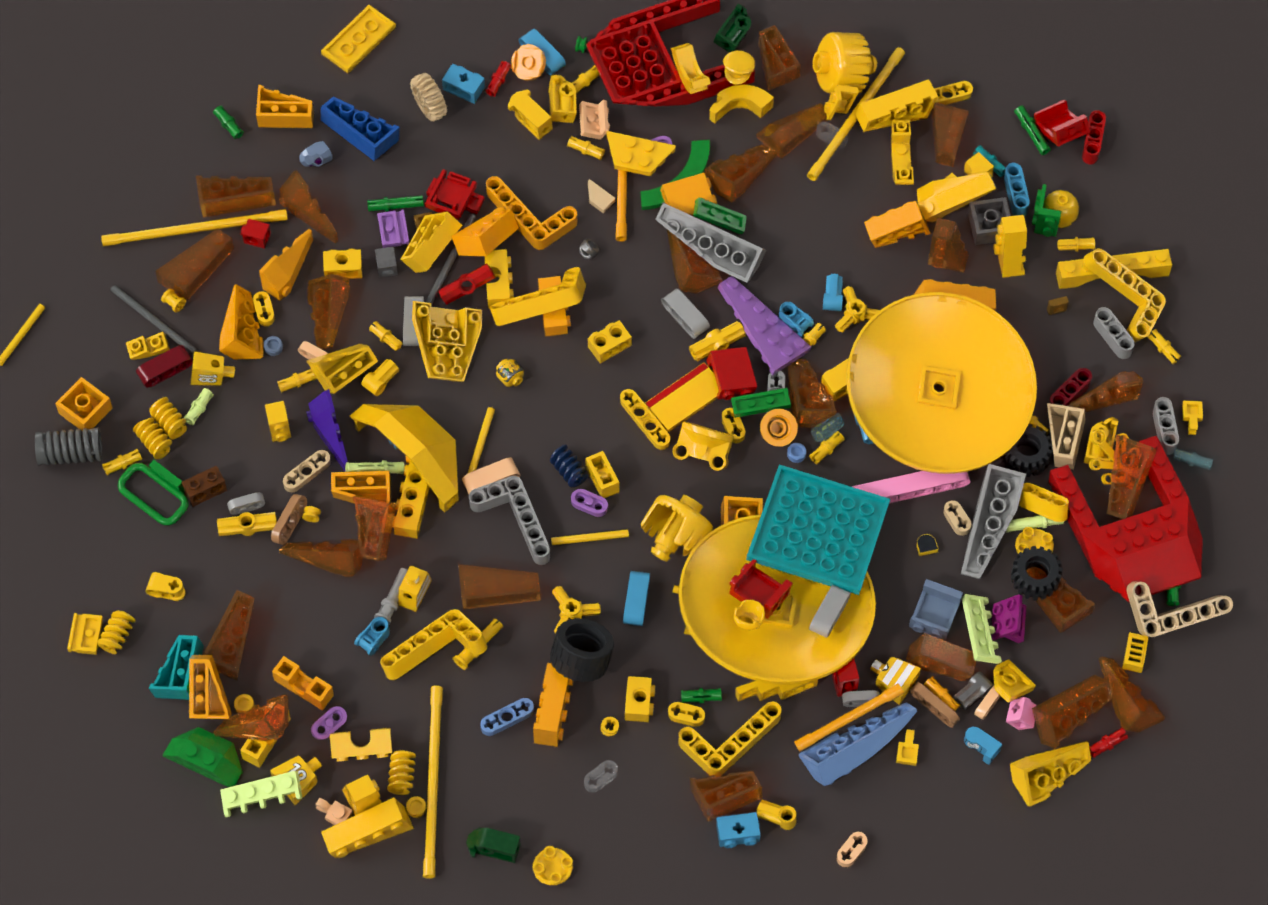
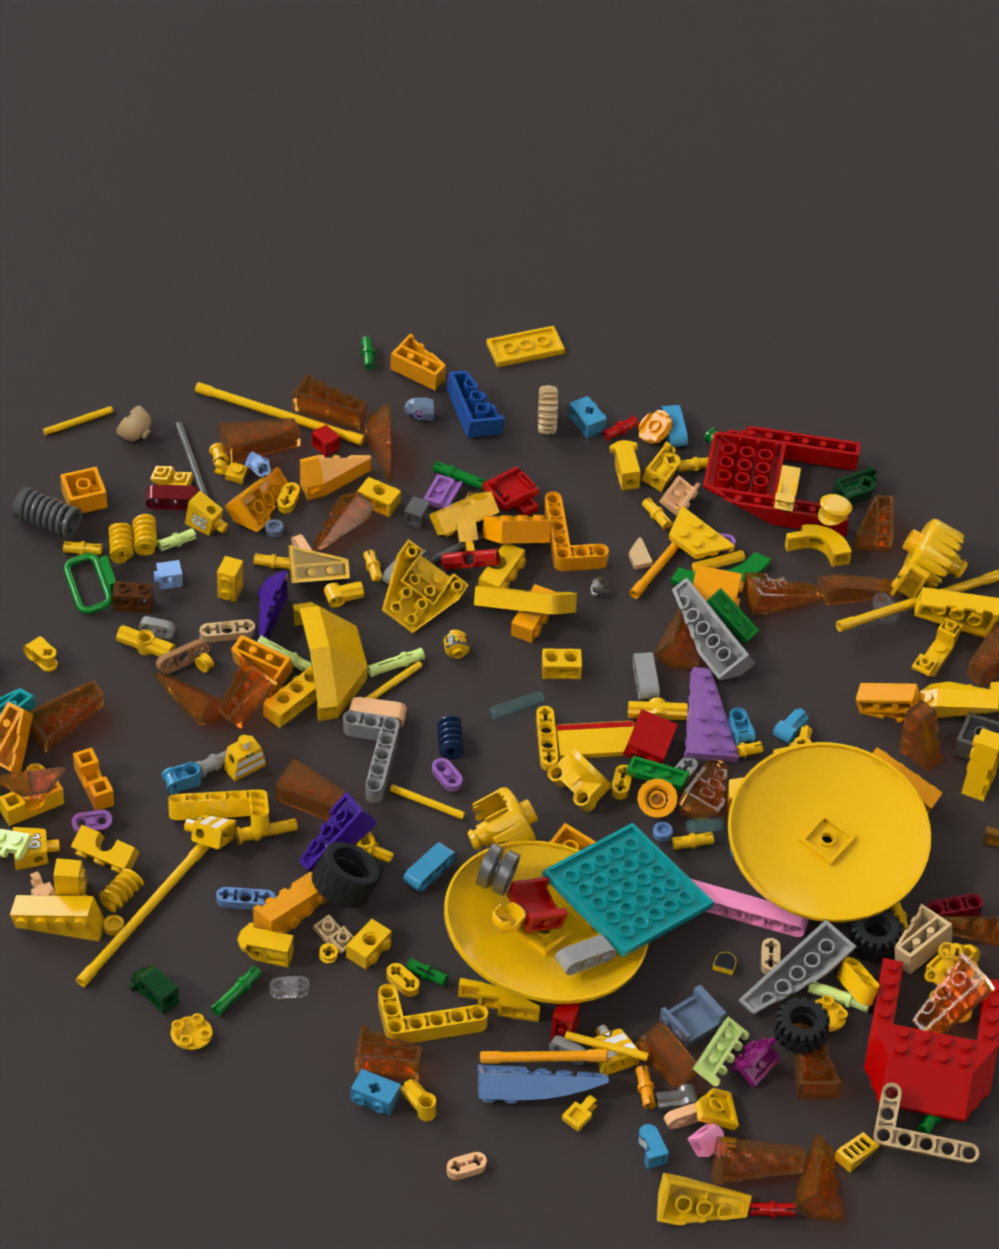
camera: 30 degrees right, 15 degrees down
(80, 312) = (135, 425): none -> tan cylinder
(197, 309) = (233, 472): none -> yellow plate
(218, 445) = (168, 575): none -> light blue brick
(219, 292) = (258, 464): none -> light blue piece
(437, 673) = (211, 830): none -> yellow torso
(446, 261) = (467, 533): none -> yellow plate
(475, 414) = (403, 659): none -> yellowish green pin
(545, 611) = (347, 824): none -> dark purple wedge
(558, 751) = (266, 945): none -> yellow piece
(563, 798) = (242, 985): none -> green pin
(597, 402) = (516, 704): none -> clear light blue axle
(602, 474) = (473, 757): yellow brick -> none
(602, 706) = (332, 933): none -> tan slope
(668, 166) = (721, 560): none -> yellow axle
(714, 578) = (497, 869): none -> flat silver wheel
(893, 679) = (606, 1045): none -> yellow bar
(934, 704) = (632, 1091): medium nougat beam -> none

